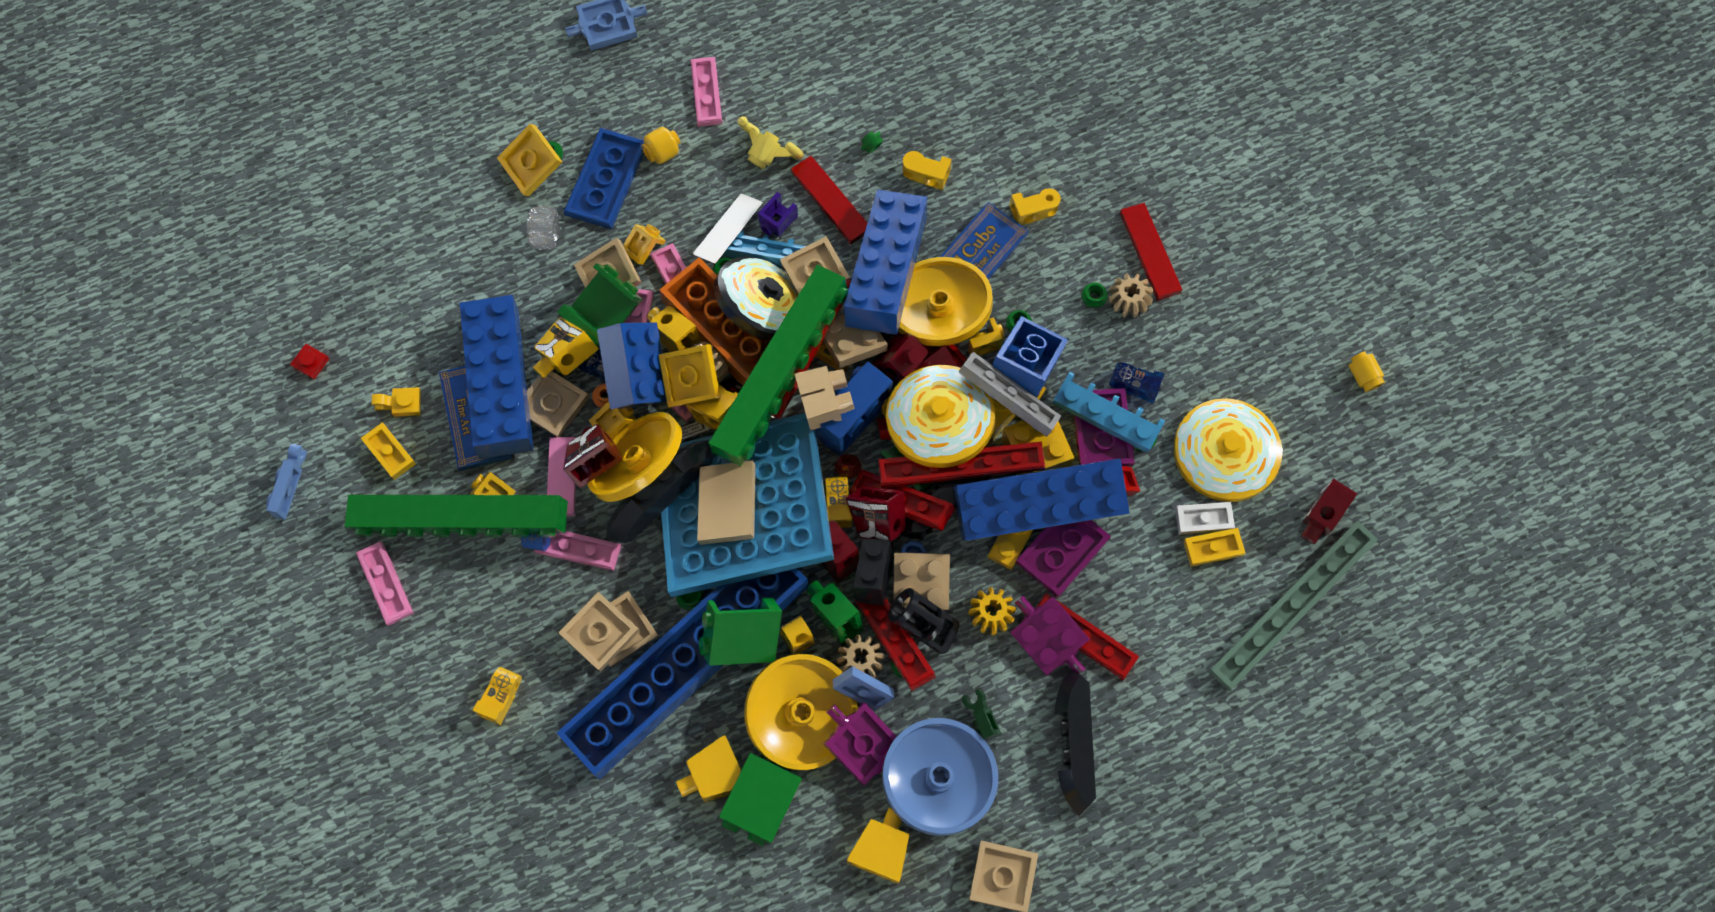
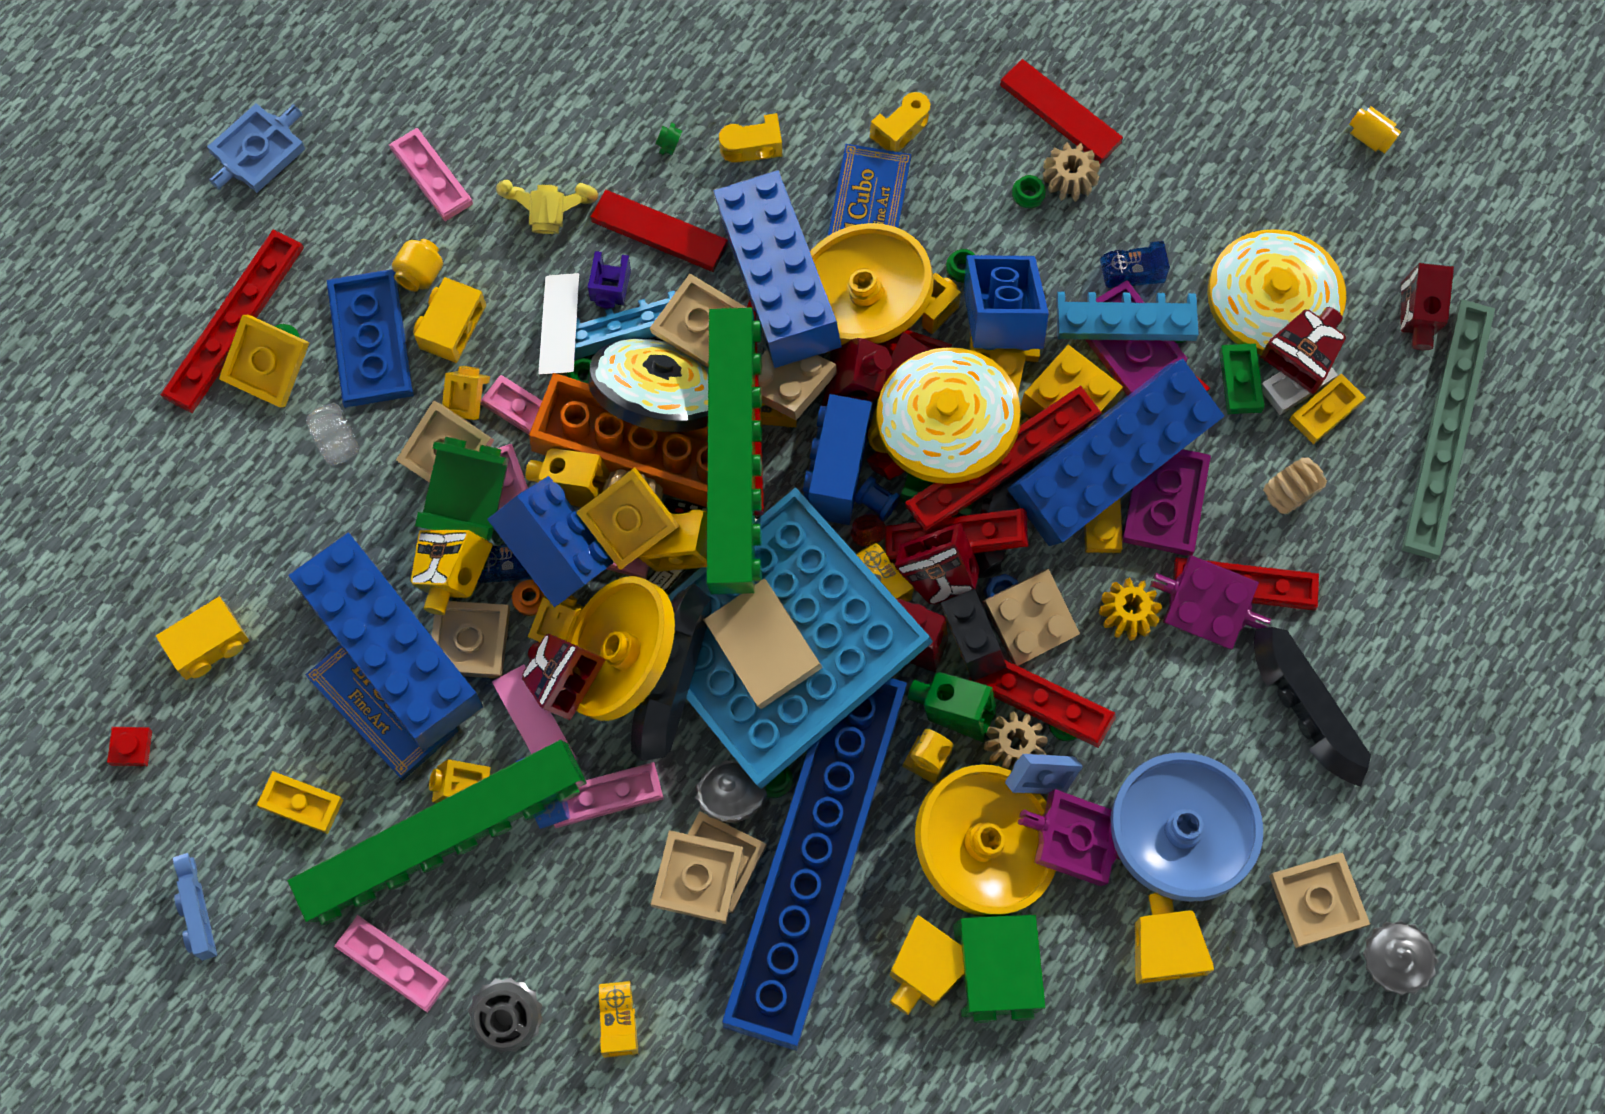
camera: 30 degrees left, 0 degrees up
(390, 317) = (203, 639): none -> yellow brick
(402, 402) = (281, 733): yellow plate -> none
(432, 654) = (509, 1004): none -> flat silver piece
(543, 116) = (246, 298): none -> red tile
(651, 590) = (729, 793): none -> flat silver piece
(660, 191) = (449, 319): none -> yellow brick
(740, 634) = (874, 787): green panel -> none
(818, 395) = (802, 462): tan hips -> none
(866, 448) = (877, 498): none -> blue bush
(929, 625) = (1071, 662): black piece -> none
(984, 719) = (1196, 740): dark green plate -> none
(1009, 394) = (1014, 349): light grey plate -> none
(1156, 587) = (1295, 485): none -> tan gear
(1165, 495) = (1241, 379): none -> green plate
(1221, 497) = (1307, 347): none -> dark red torso

